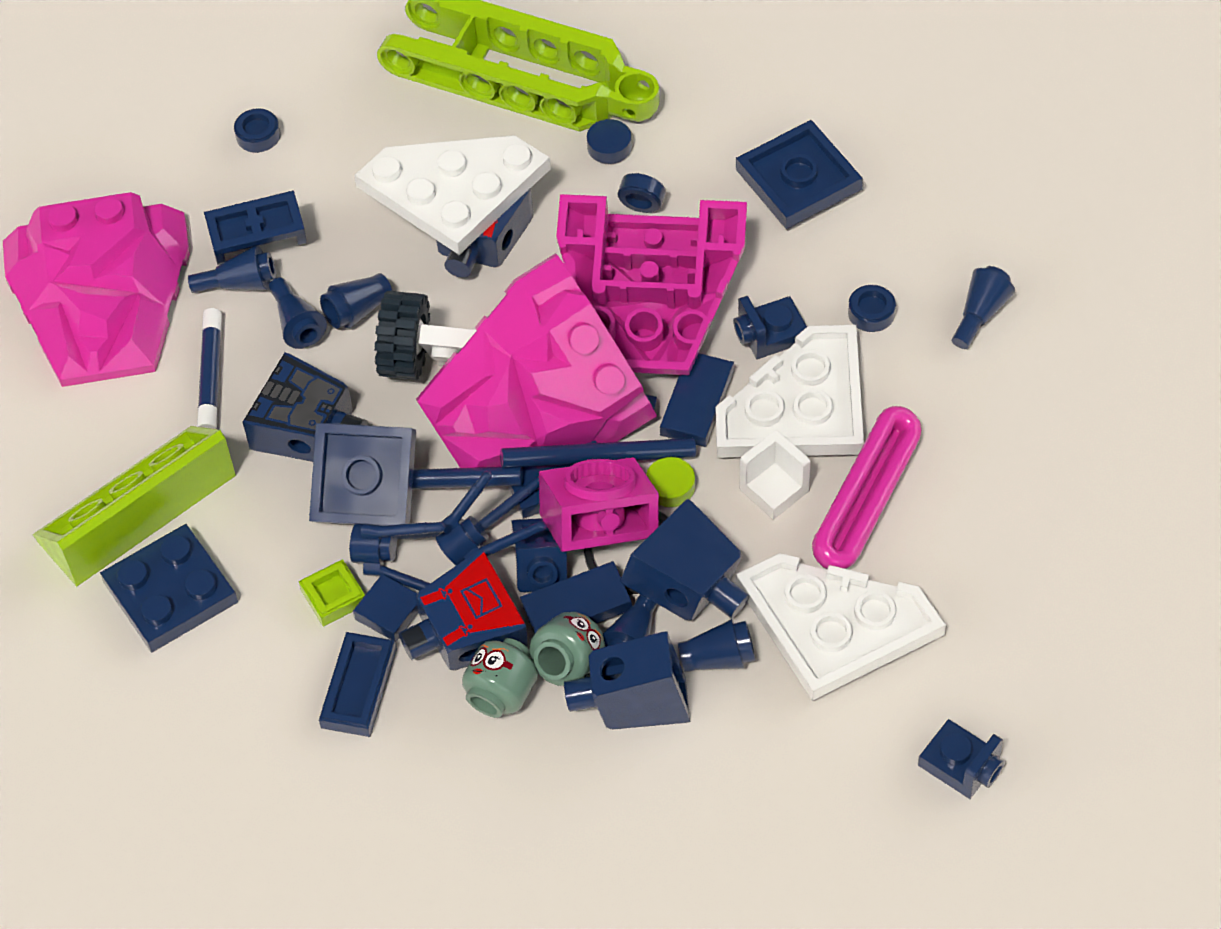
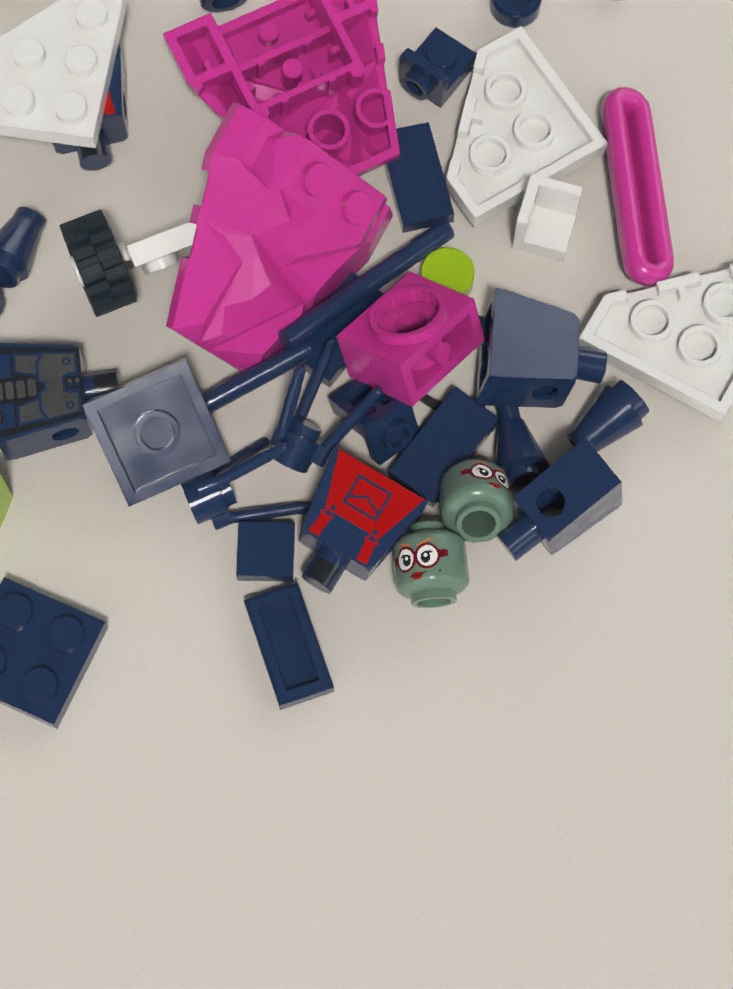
camera: 35 degrees left, 15 degrees up
(332, 592) = (199, 566): lime tile -> none

